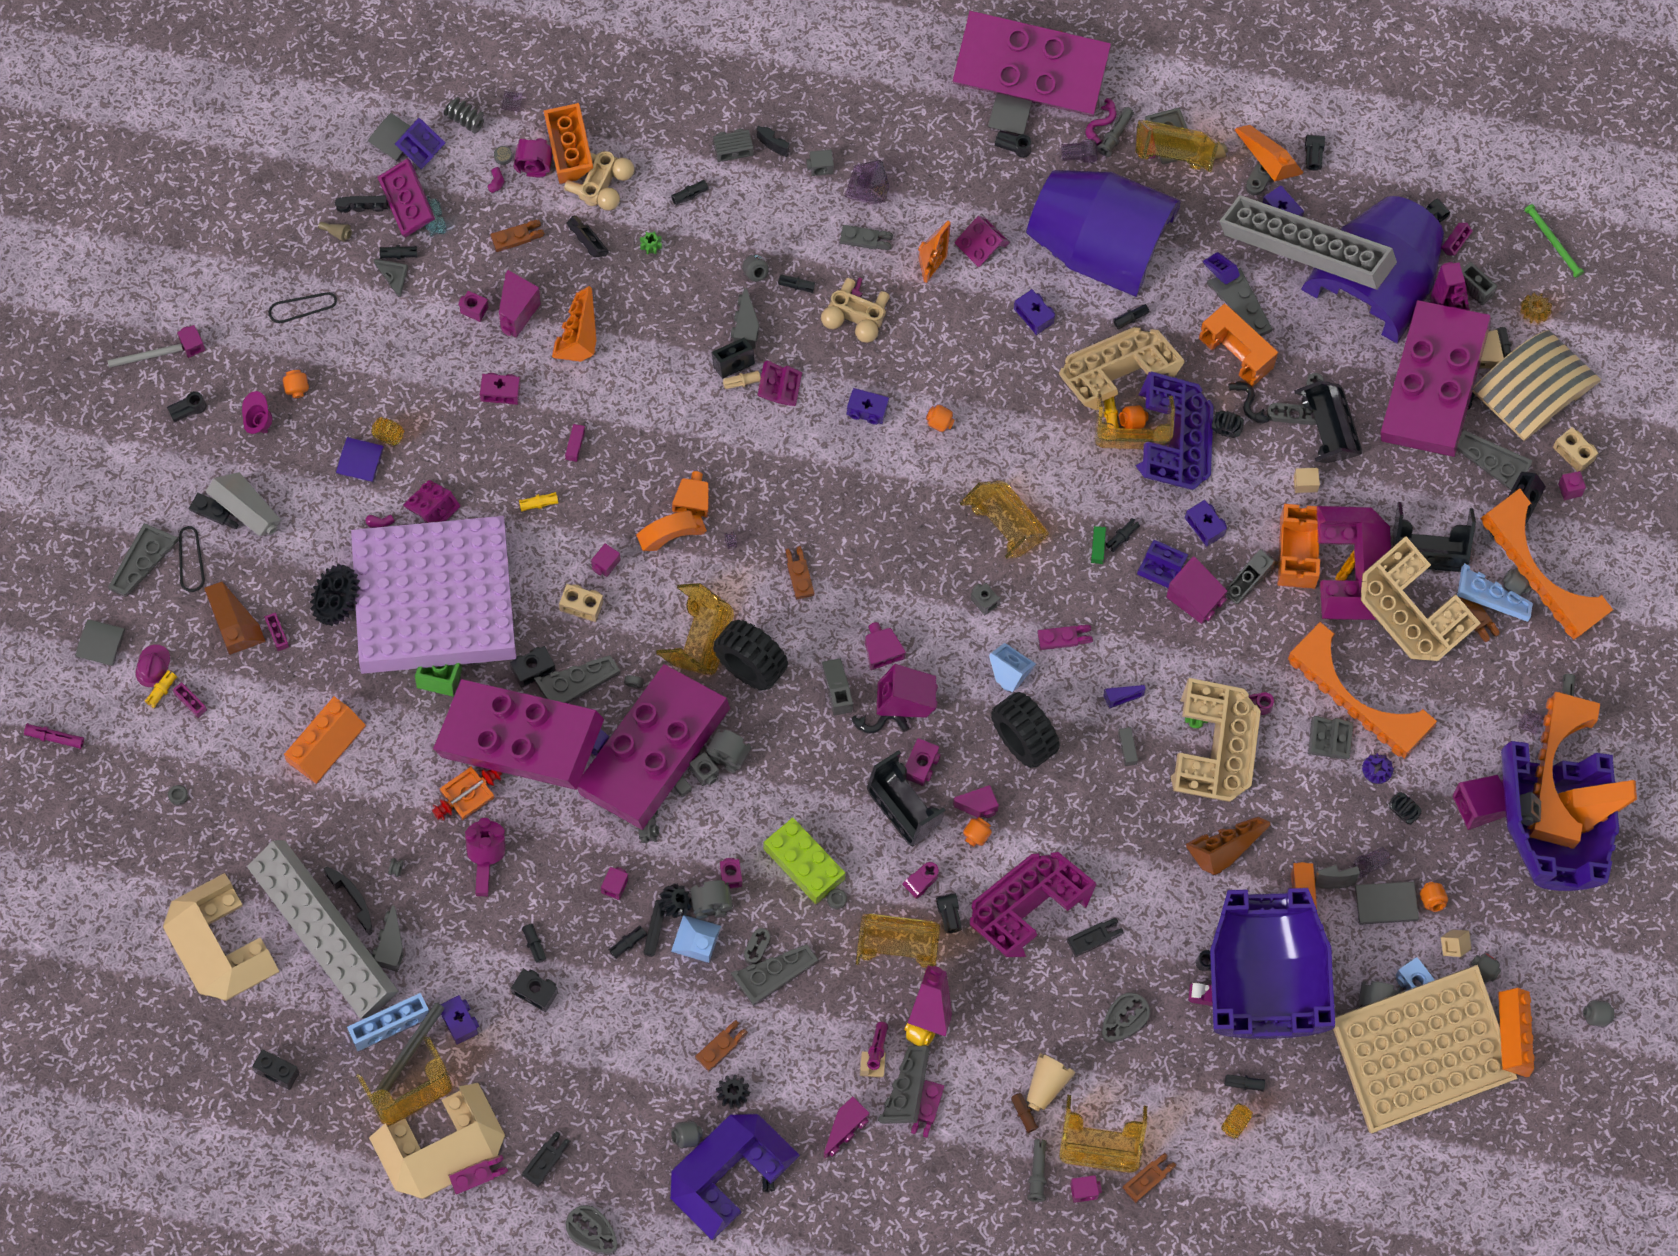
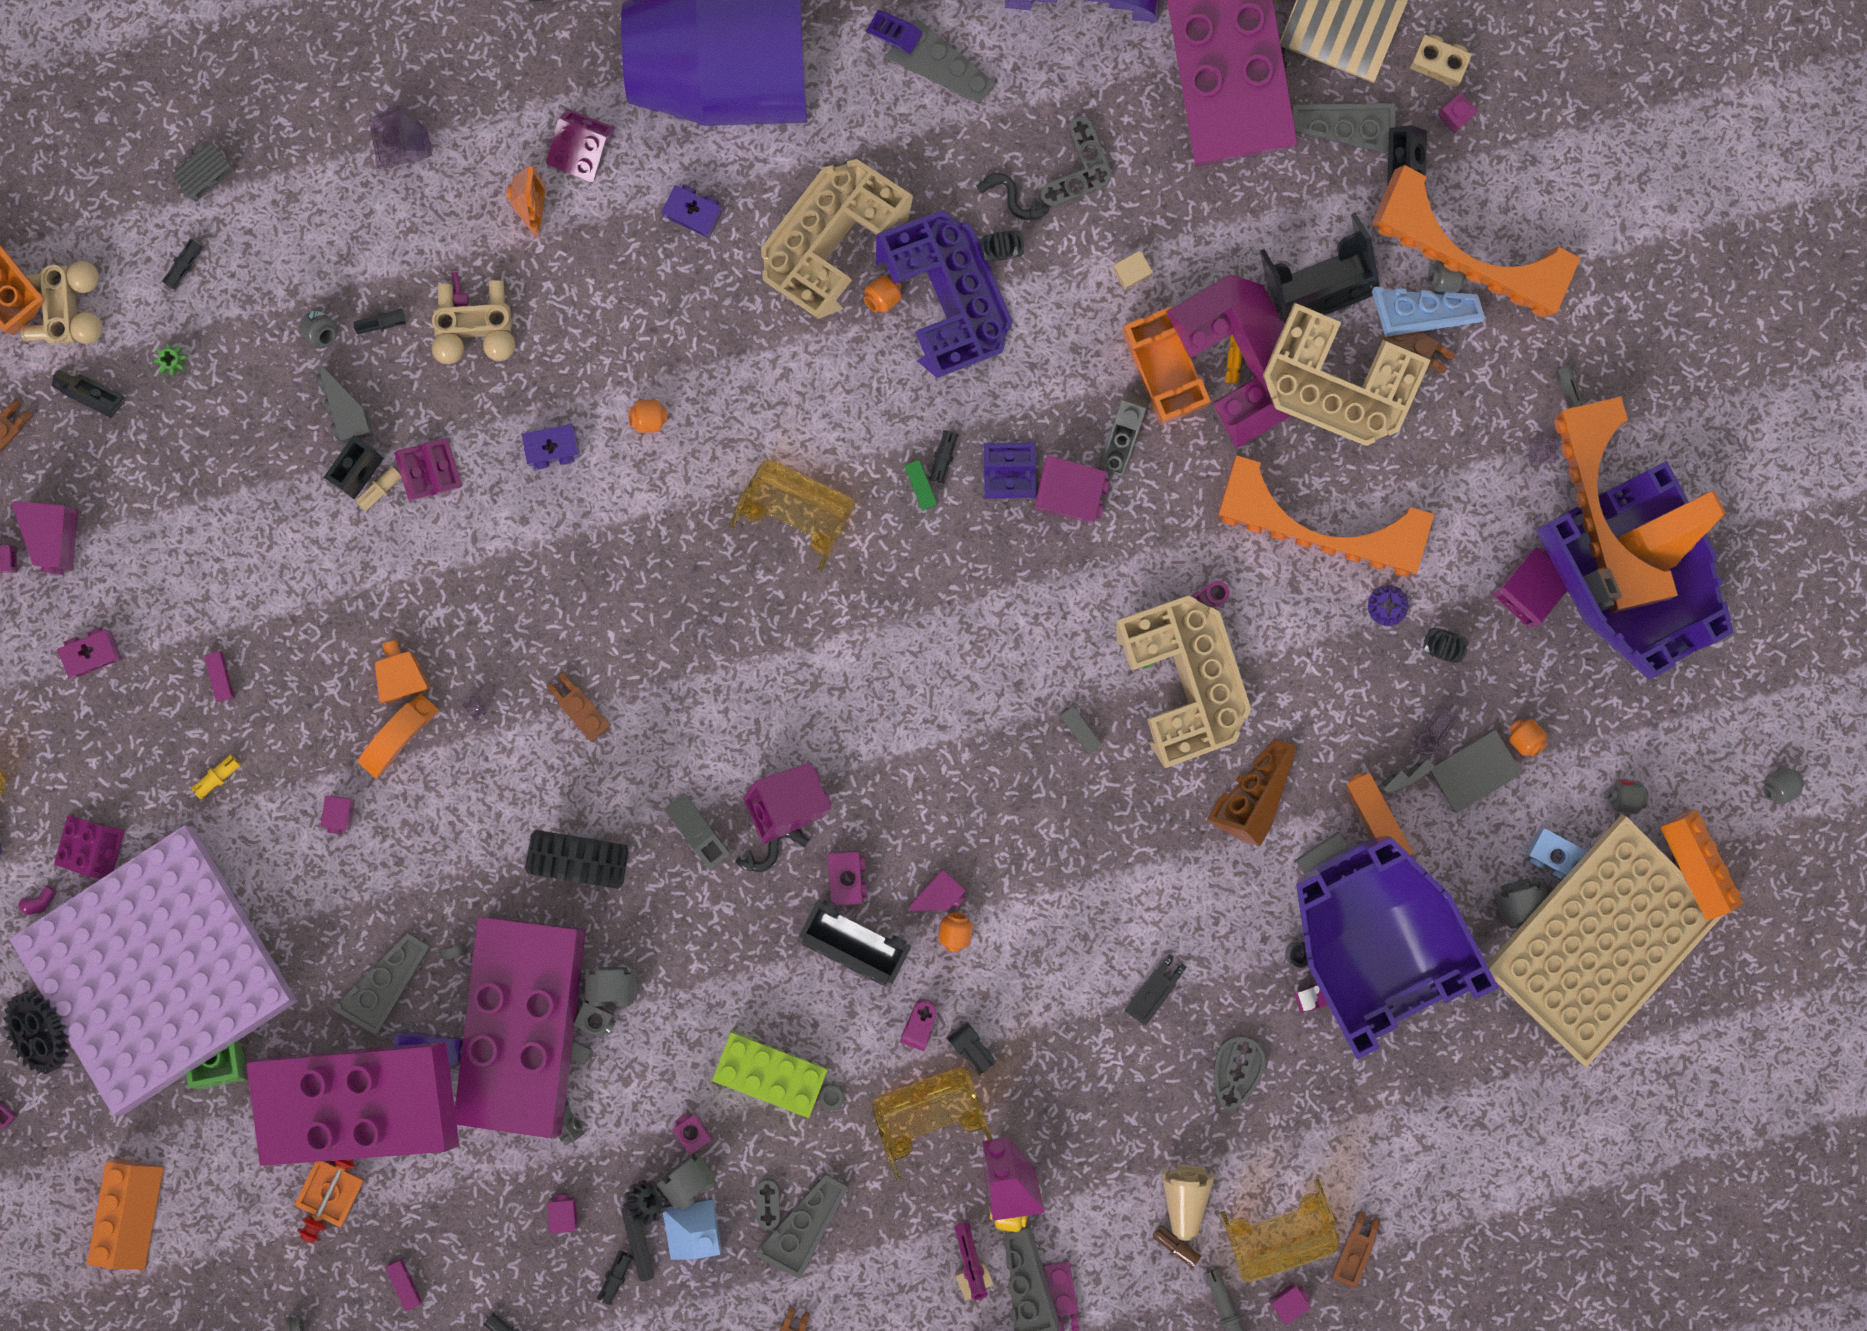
camera: 25 degrees left, 20 degrees up
(485, 841) = (384, 1247): magenta brick -> none
(525, 674) = (335, 987): black brick -> none
(579, 335) = (147, 529): orange wedge -> none
(579, 607) = (338, 888): tan brick -> none
(710, 619) = (506, 837): clear yellow windscreen -> none
(767, 137) = (242, 138): black slope -> none
(820, 162) = (324, 140): dark grey brick -> none
(865, 237) = (431, 214): dark grey hinge -> none
(882, 647) = (726, 754): magenta torso -> none
(984, 604) = (827, 631): dark grey brick -> none
(1002, 907) = (1039, 984): magenta slope -> none
(1010, 667) = (891, 700): light blue slope -> none
(1025, 729) = (953, 786): black tyre -> none
(1063, 637) = (935, 628): magenta hinge -> none
(1110, 437) = (896, 322): clear yellow windscreen -> none
(1111, 412) = (856, 307): yellow pin -> none
(1122, 695) = (1038, 672): dark purple slope -> none
(1130, 316) = (814, 154): black axle -> none
(1206, 531) = (1022, 389): dark purple brick -> none
(1236, 1120) = (1426, 1135): clear yellow gear -> none
(1242, 340) = (967, 123): orange piece -> none
(1244, 1082) = (1412, 1079): black axle -> none
(1330, 737) = (1314, 594): dark grey slope -> none
(1333, 421) = (1132, 179): black windscreen -> none
(1456, 943) = (1579, 782): tan panel -> none

